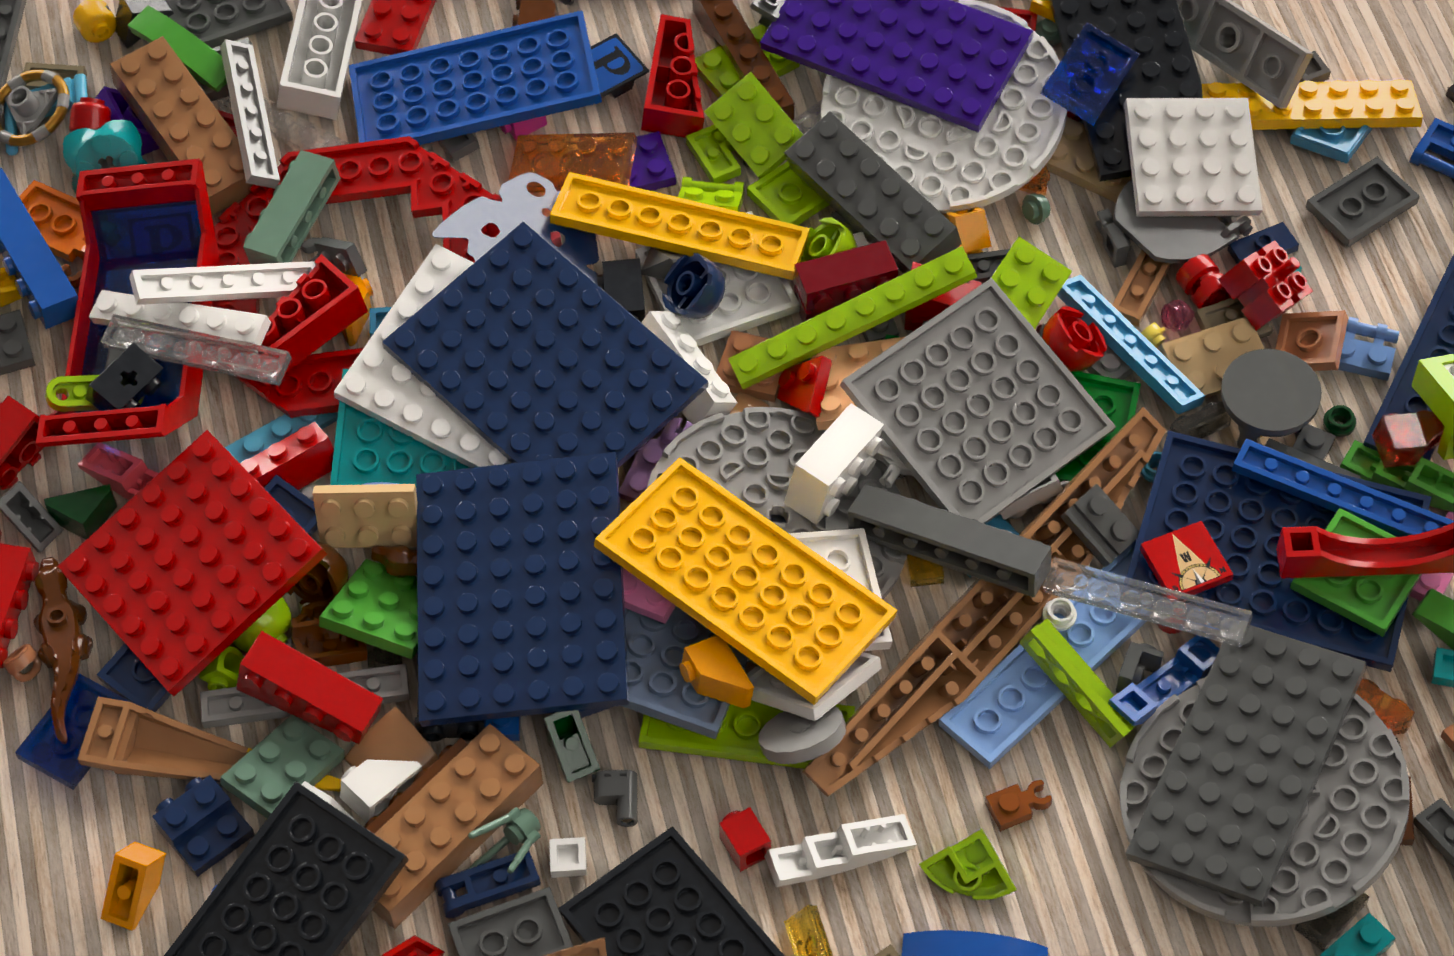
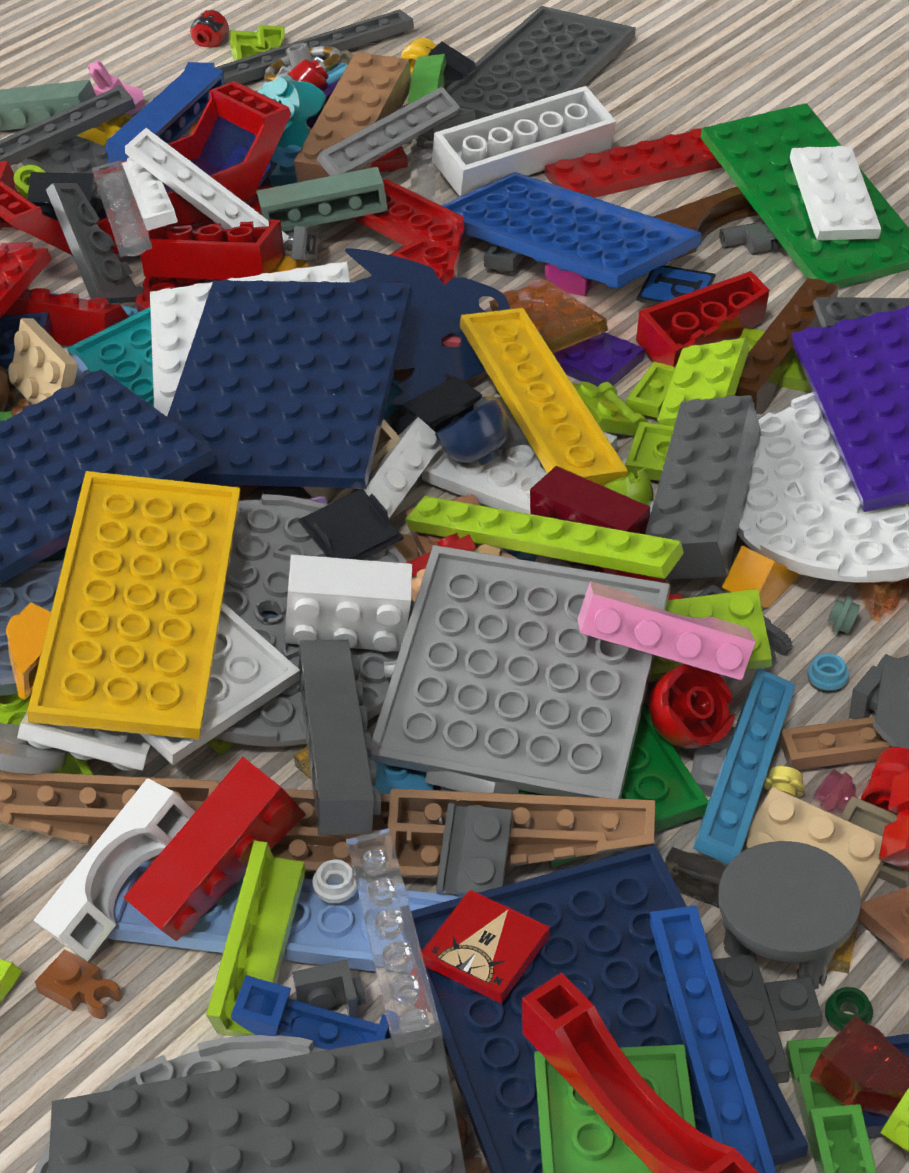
camera: 55 degrees right, 15 degrees down
(224, 407) = (91, 247): none -> dark grey wing
(739, 419) = (351, 527): none -> black piece
(950, 683) = (83, 906): none -> white arch
(1005, 659) = (213, 849): none -> red wedge
(1015, 322) = (688, 640): none -> bright pink arch
(1078, 245) = (828, 672): none -> medium azure plate

